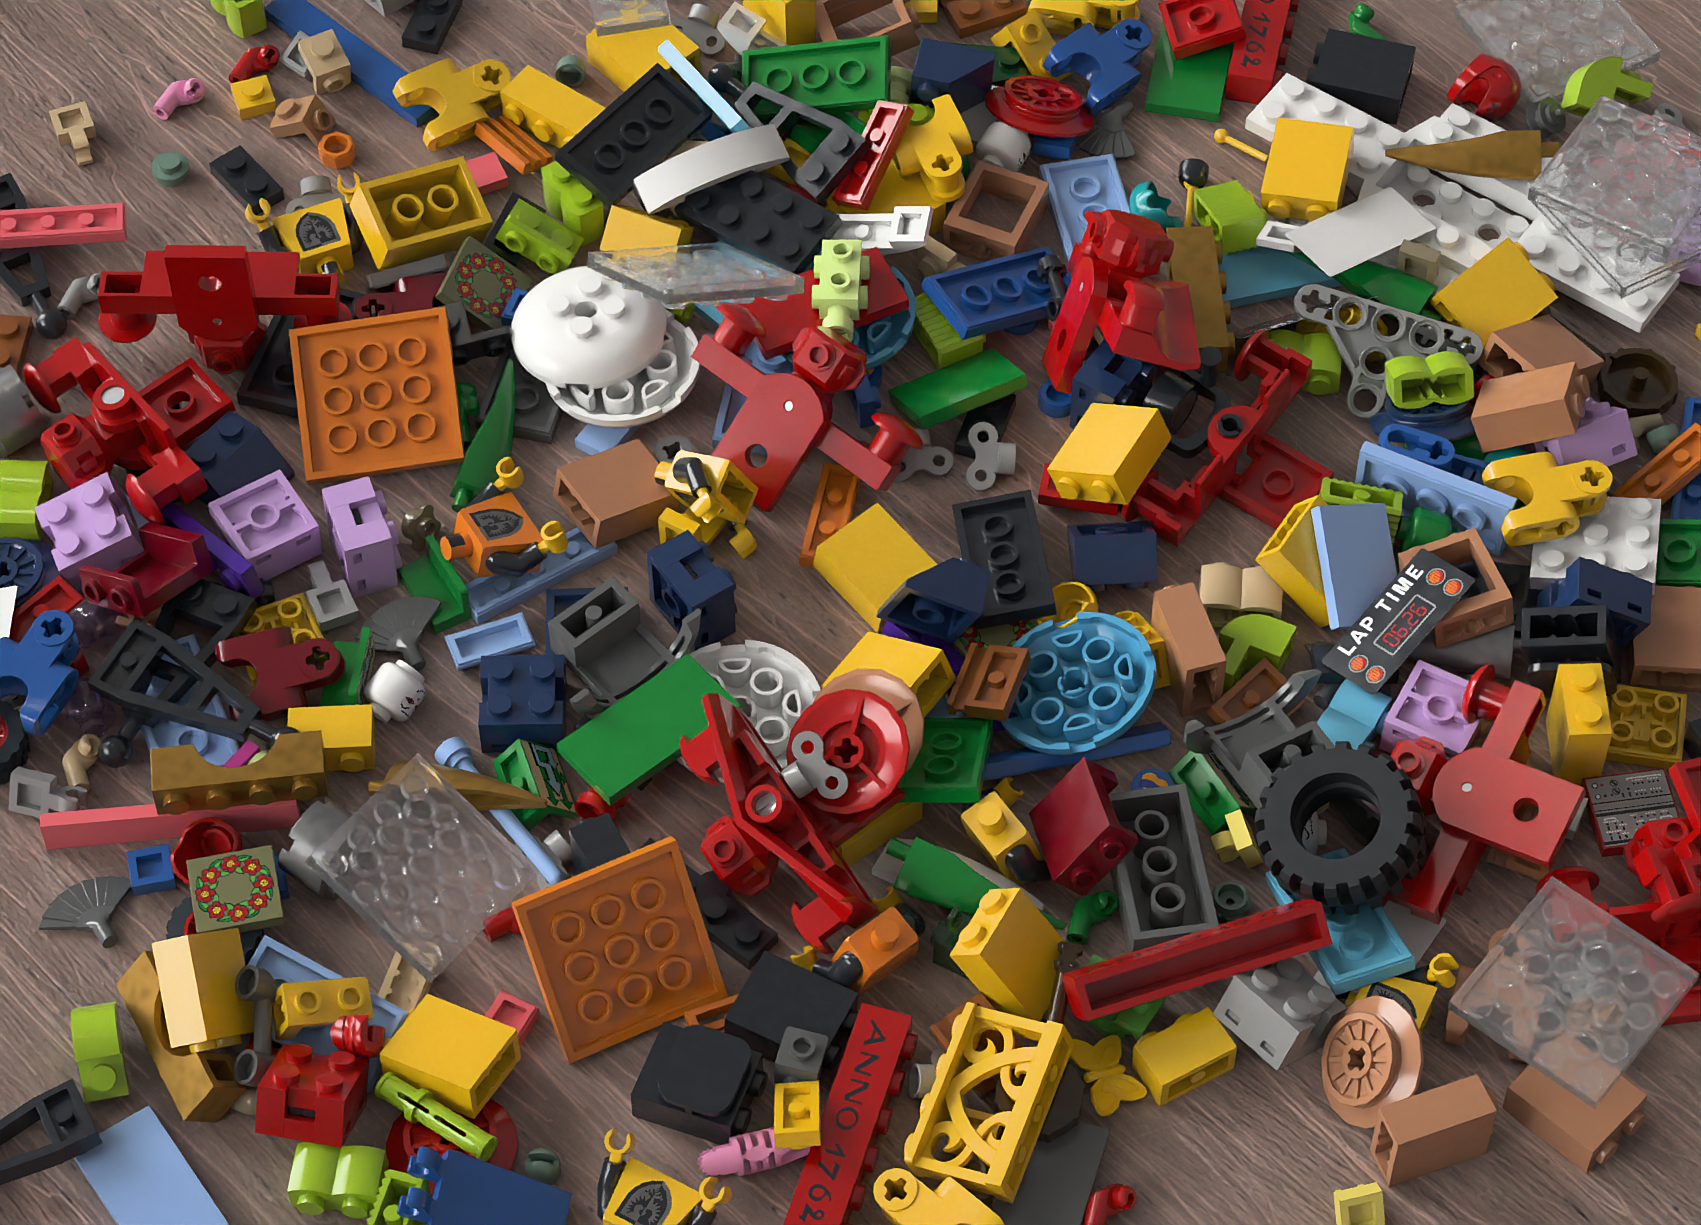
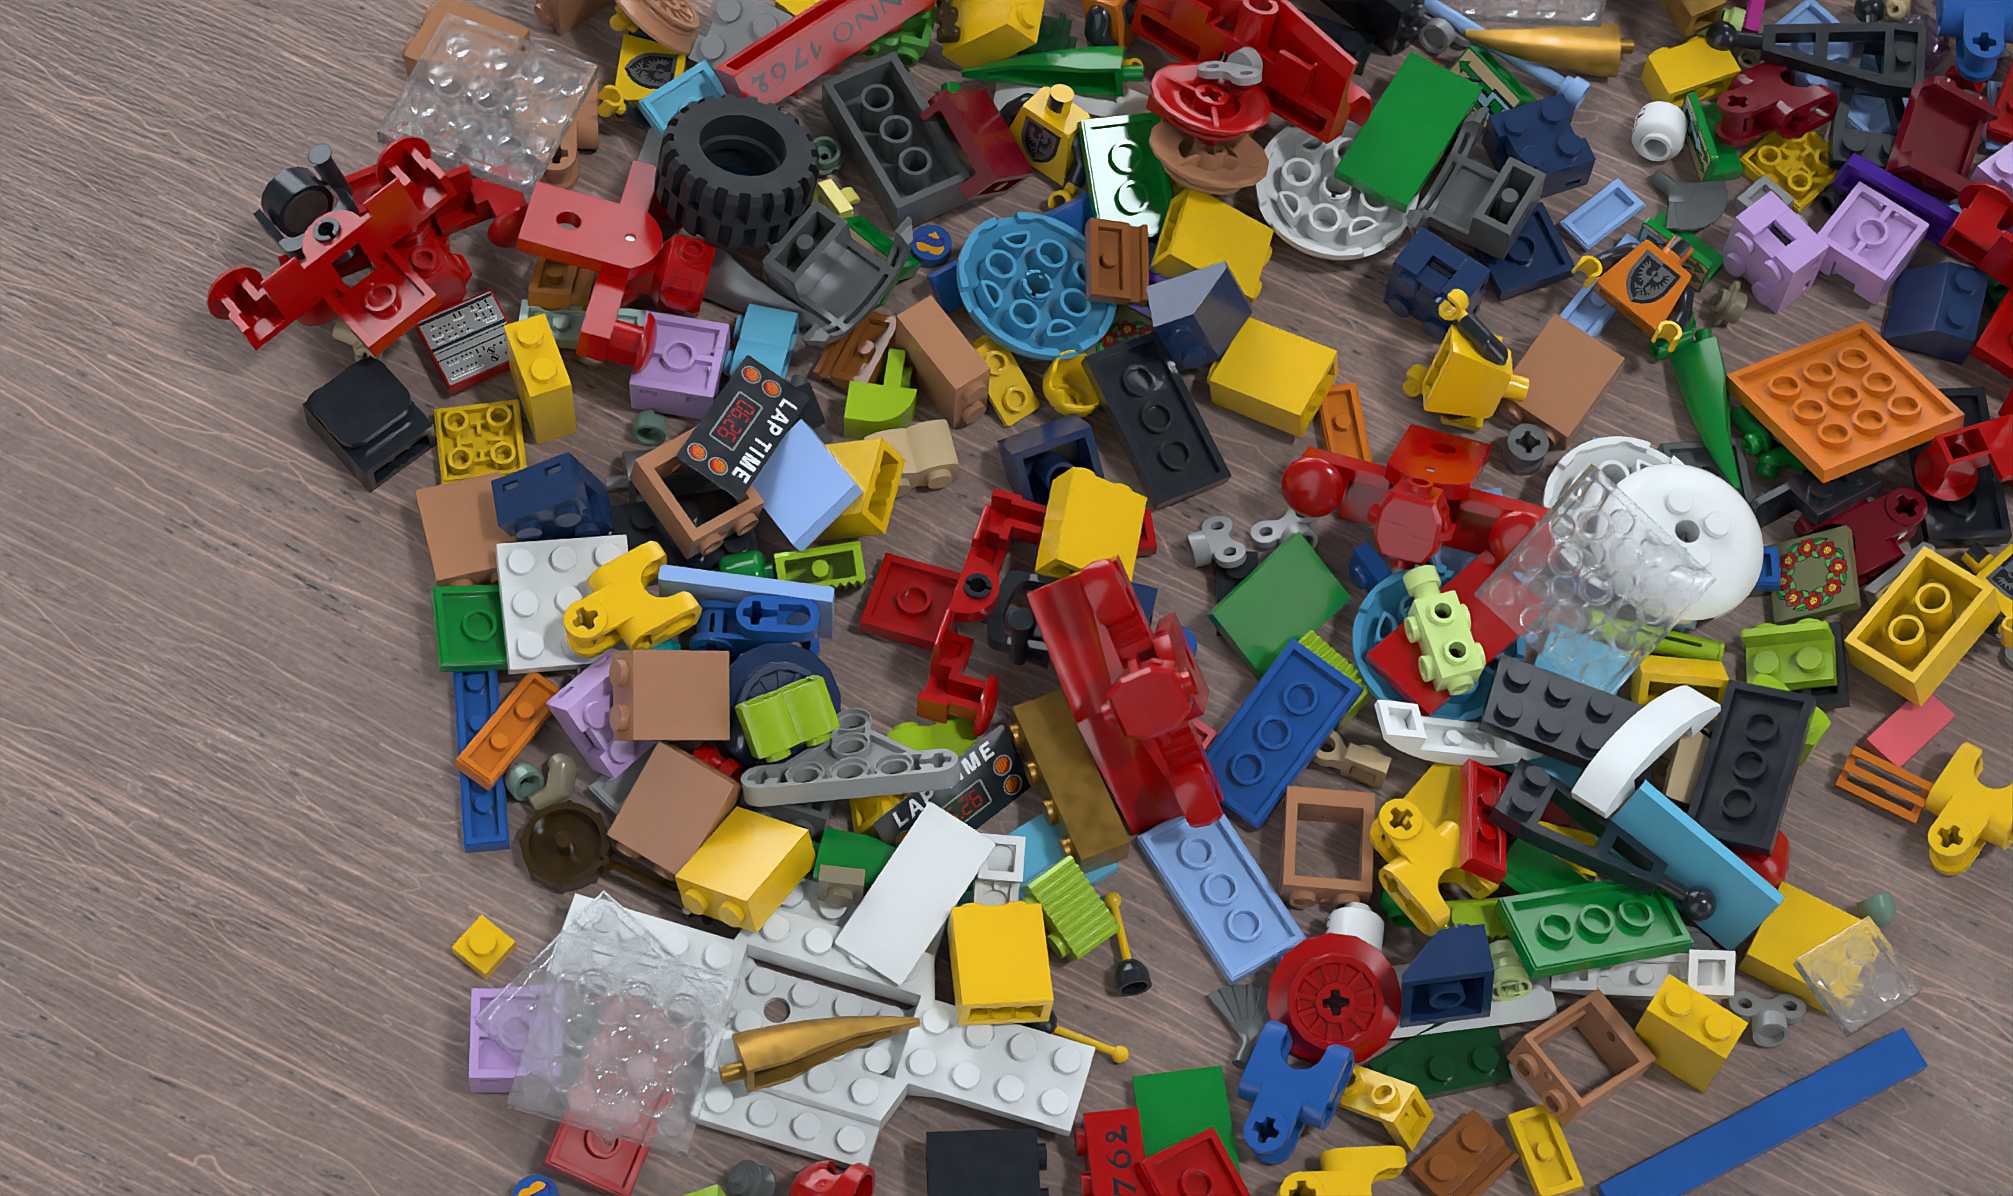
camera: 155 degrees right, 10 degrees up
(547, 107) = (1855, 832): yellow brick -> none
(1052, 273) = (1235, 767): black bar -> none
(1147, 203) = (1153, 896): teal hair -> none
(1570, 637) = (560, 425): black brick -> none

